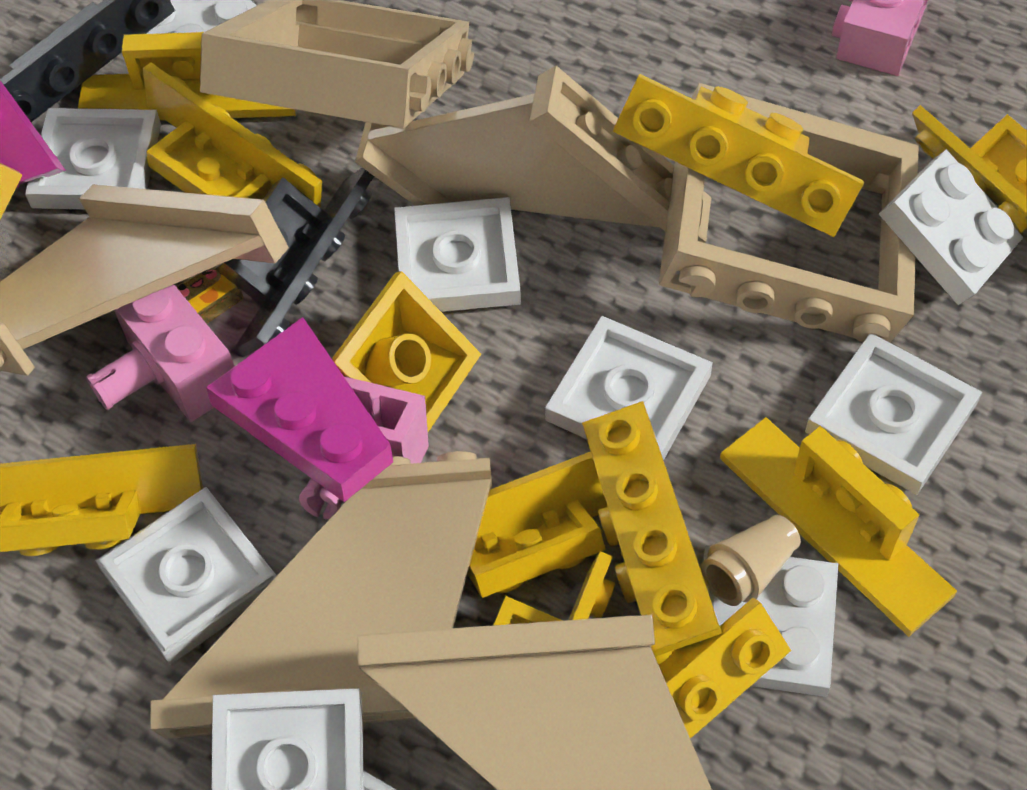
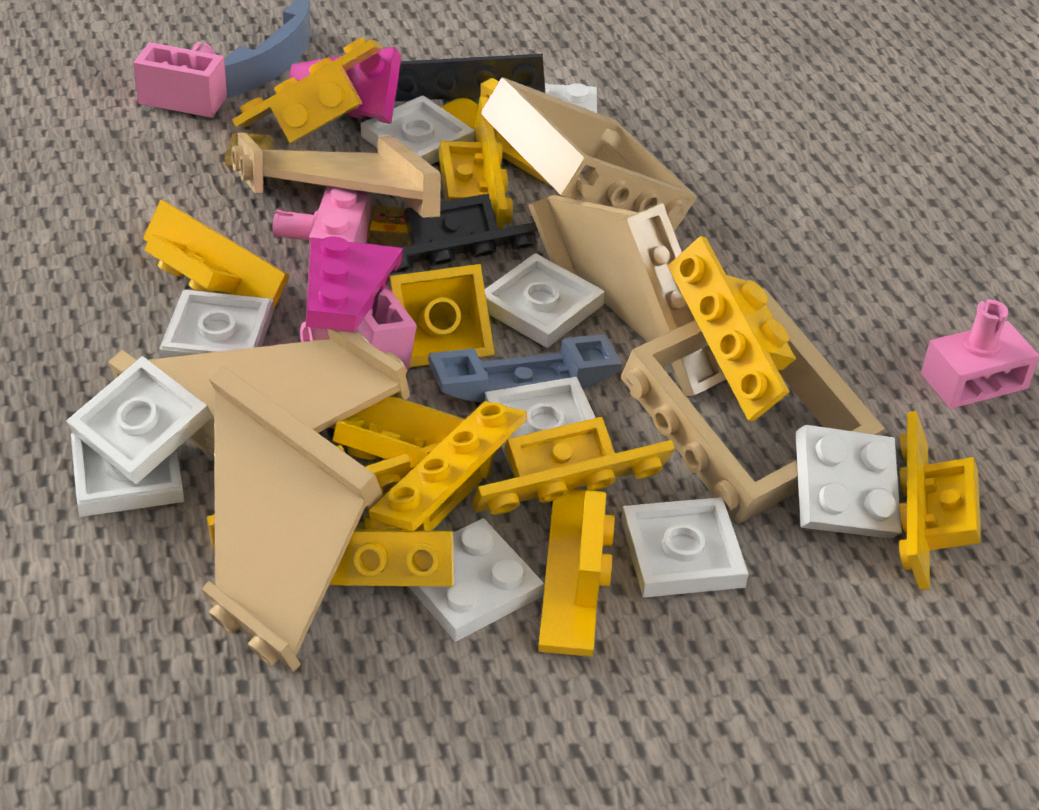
camera: 40 degrees right, 15 degrees down
(573, 300) = (467, 378): none -> sand blue slope
(720, 422) = (565, 459): none -> yellow bracket
(749, 560) = (486, 526): tan cone -> none

